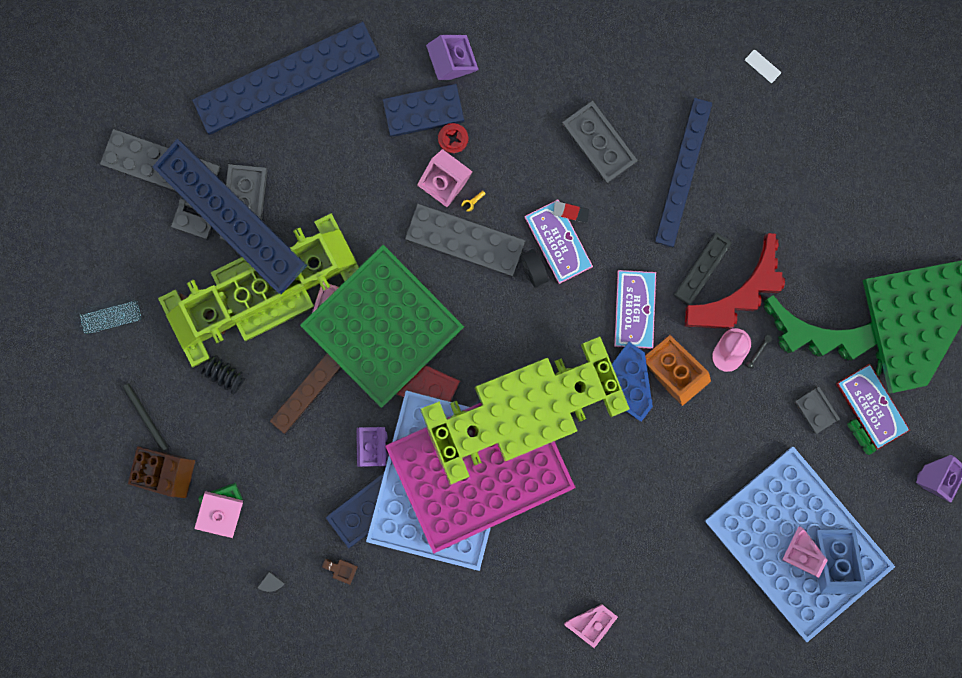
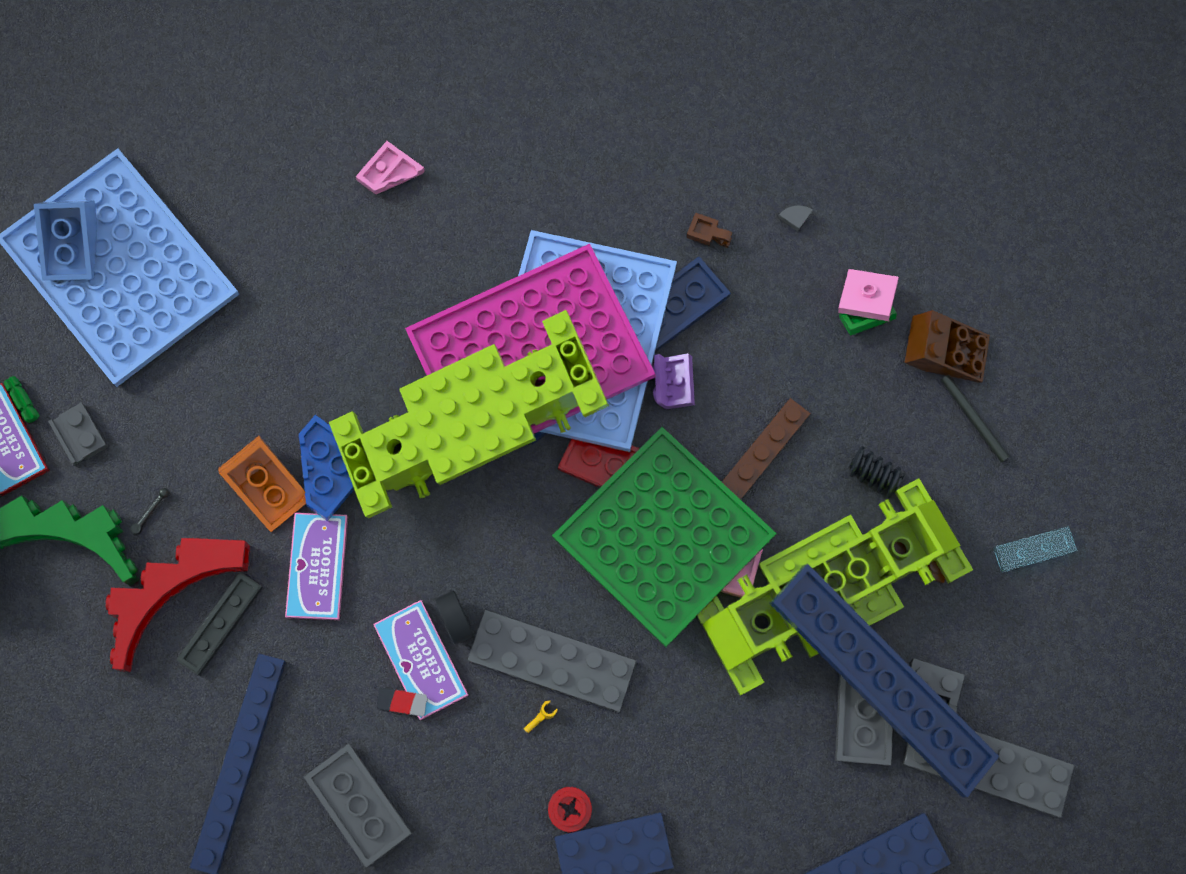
camera: 175 degrees right, 10 degrees down
(444, 177) = (581, 749): bright pink slope -> none
(731, 349) = (187, 513): bright pink piece -> none
(805, 554) = (109, 246): bright pink wing -> none

